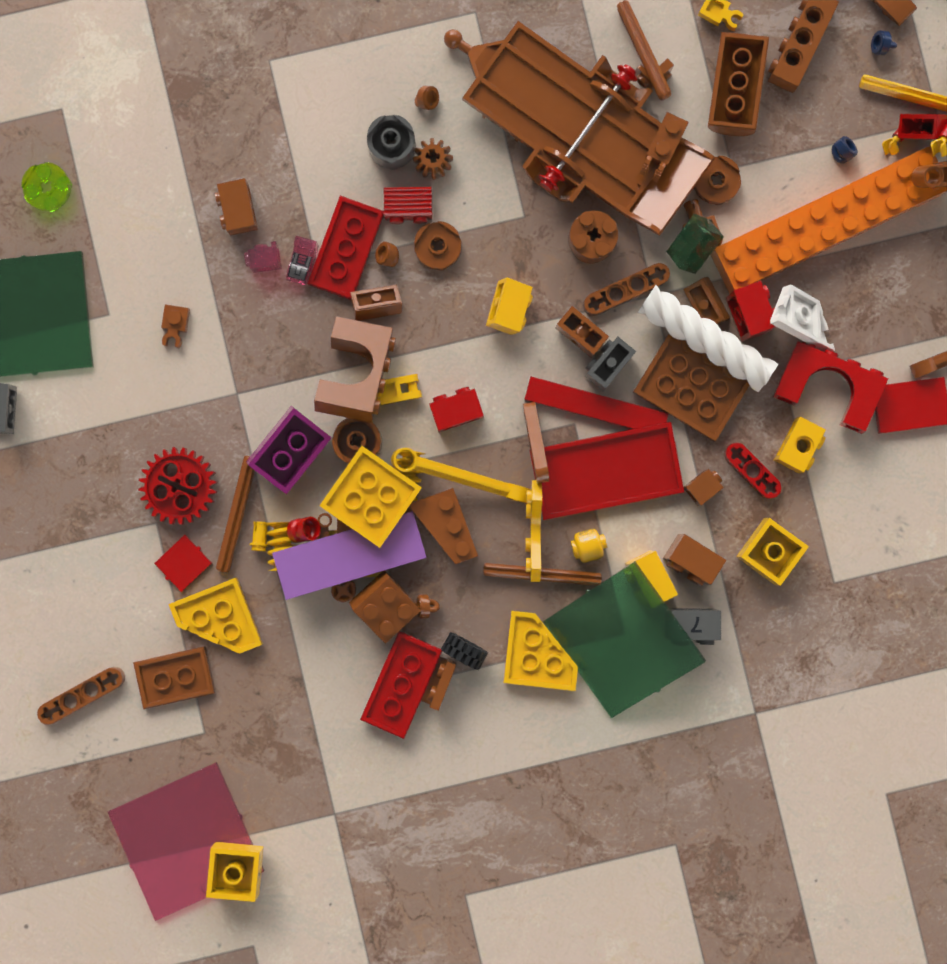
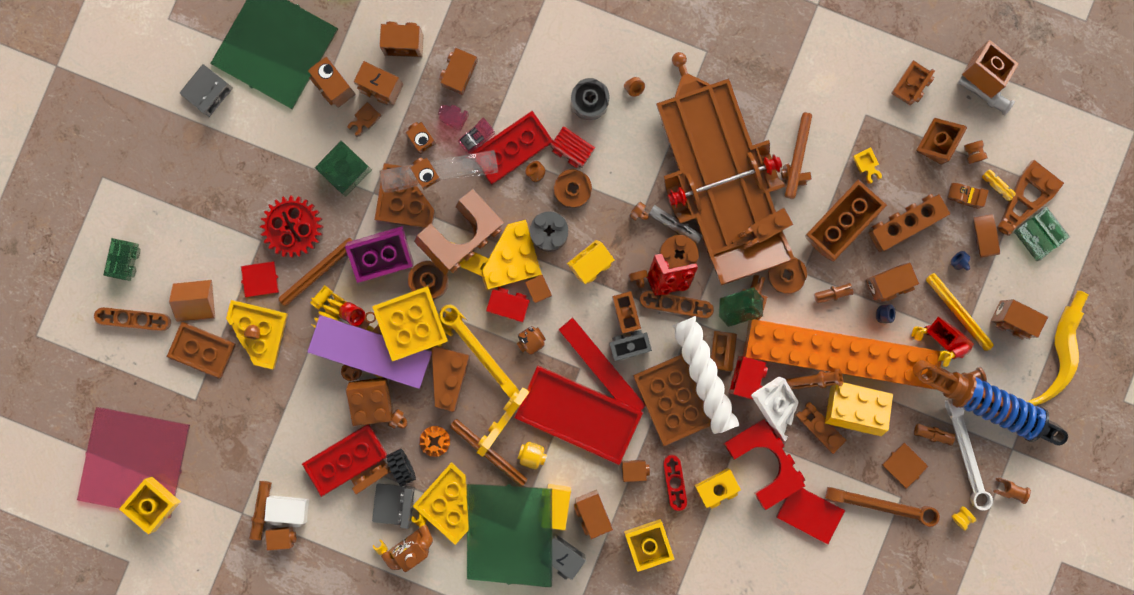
camera: 30 degrees right, 0 degrees up
(27, 642) = (121, 259): none -> clear green brick
(114, 308) = (334, 86): none -> dark orange brick
(130, 633) = (192, 300): none -> dark orange slope
(155, 215) = (401, 39): none -> dark orange brick
(163, 276) = (379, 83): none -> dark orange brick
(189, 389) = (343, 168): none -> clear green brick
(214, 621) = (252, 332): none -> dark orange hinge
(245, 302) = (420, 137): none -> dark orange brick
(269, 340) = (455, 167): none -> clear arch
(271, 379) = (404, 206): none -> dark orange plate
(277, 331) = (424, 173): none -> dark orange brick
(355, 806) = (259, 513): none -> dark orange pin
(376, 302) = (506, 197): dark orange slope -> none
(378, 778) = (286, 510): none -> white brick
(392, 811) = (280, 538): none -> dark orange brick
(425, 359) = (511, 258): none -> yellow plate
(440, 153) = (616, 128): dark orange gear -> none
(441, 318) = (557, 224): none -> dark grey brick
(475, 371) = (538, 288): none -> dark orange panel
(483, 695) = (393, 505): none -> dark grey bracket
(485, 611) = (444, 441): none -> orange gear
(505, 428) = (531, 340): none -> dark orange head
(521, 222) = (638, 211): none -> dark orange tile
(533, 730) = (410, 550): none -> dark orange torso
(536, 442) = (543, 364): beam -> none
(562, 209) = (657, 213): none -> light grey pin
(567, 288) = (638, 277): none -> dark orange tile
(599, 270) = (666, 280): none -> red bracket
(777, 166) = (833, 293): none -> dark orange axle
(828, 260) = (821, 379): none -> dark orange pin
(830, 111) = (892, 281): none -> dark orange brick
(861, 311) = (823, 432): none -> dark orange plate
(886, 263) = (859, 409): none -> yellow brick

